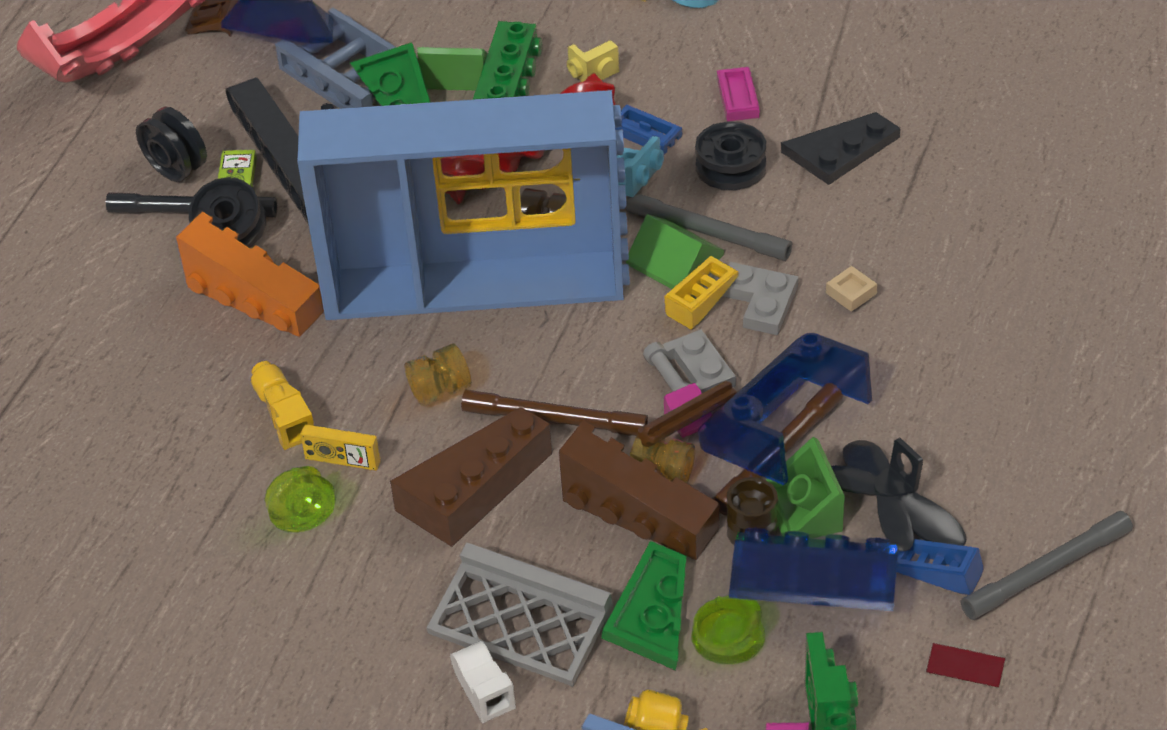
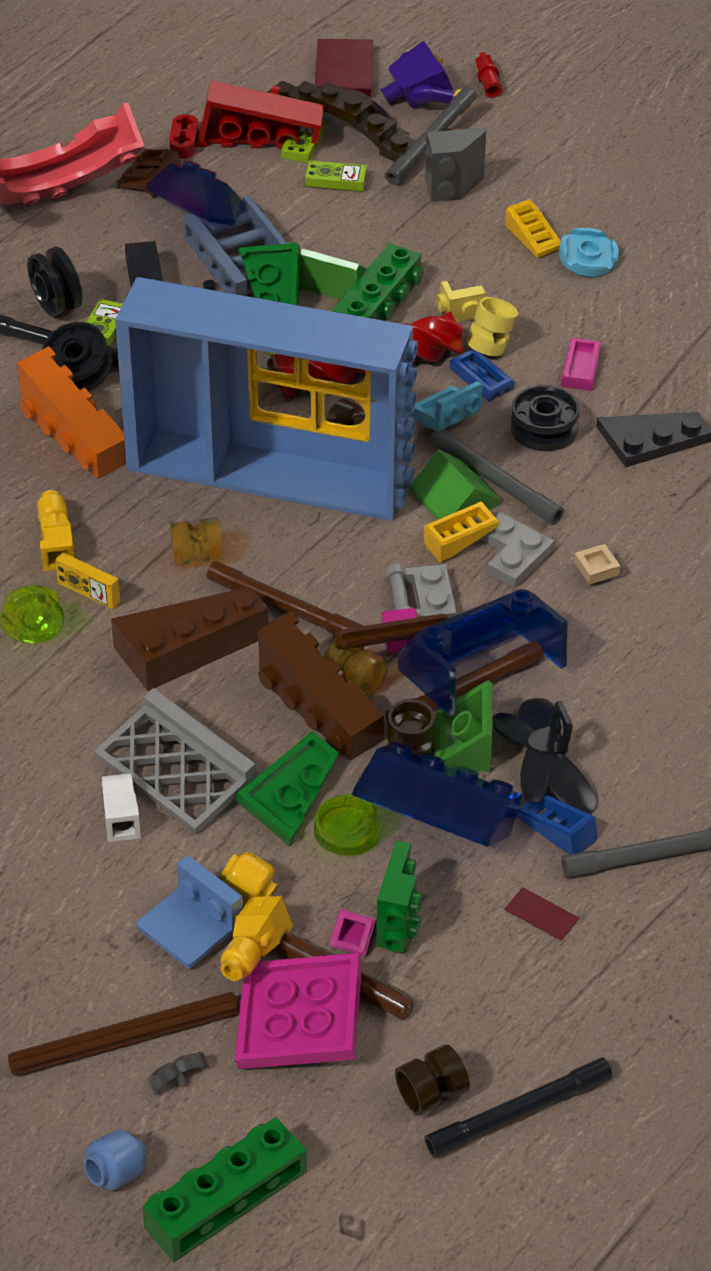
camera: 15 degrees right, 0 degrees up
(639, 78) = (492, 326): none -> light yellow wheel

